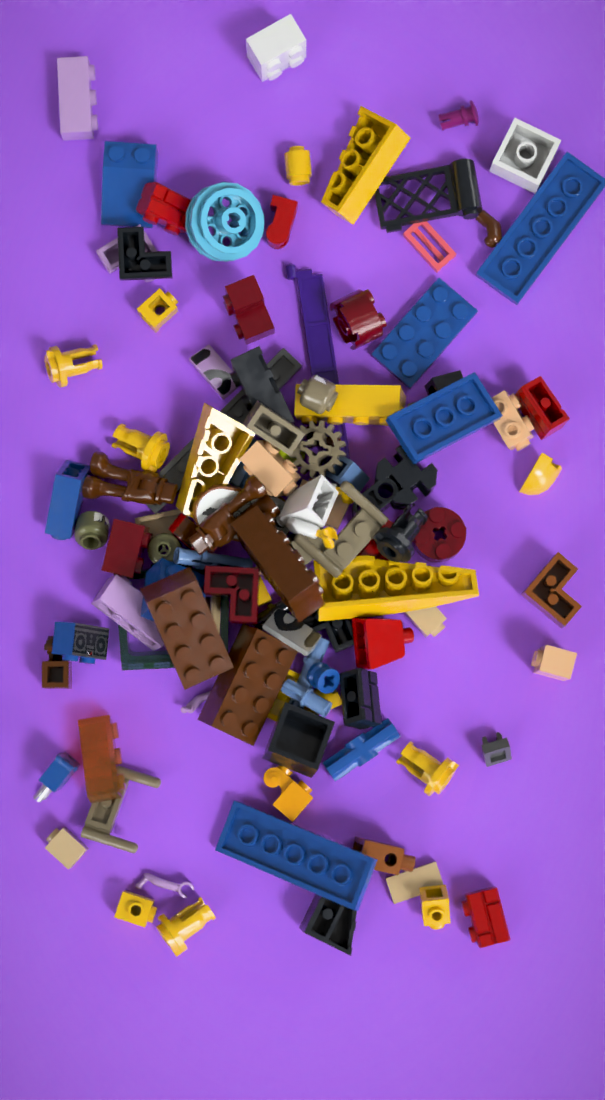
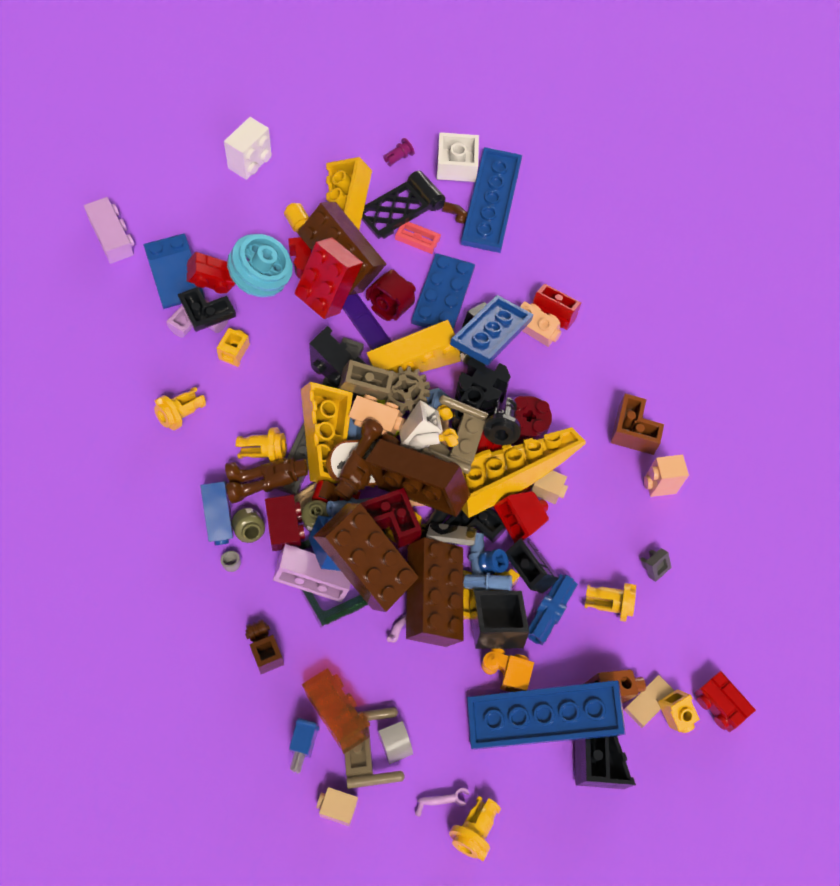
camera: 30 degrees left, 20 degrees down
(60, 555) = (230, 561): none -> light grey hinge
(80, 641) = (276, 615): brick -> none
(135, 909) = (425, 834): yellow brick -> none
(145, 812) = (395, 742): none -> light grey brick
(214, 371) = (295, 374): slope -> none
(247, 305) = (301, 316): dark red brick -> none
(292, 273) = (328, 277): none -> red brick
(317, 394) = (388, 347): dark tan head -> none
(325, 237) = (331, 221): none -> reddish brown brick
(541, 476) = (578, 354): yellow brick -> none

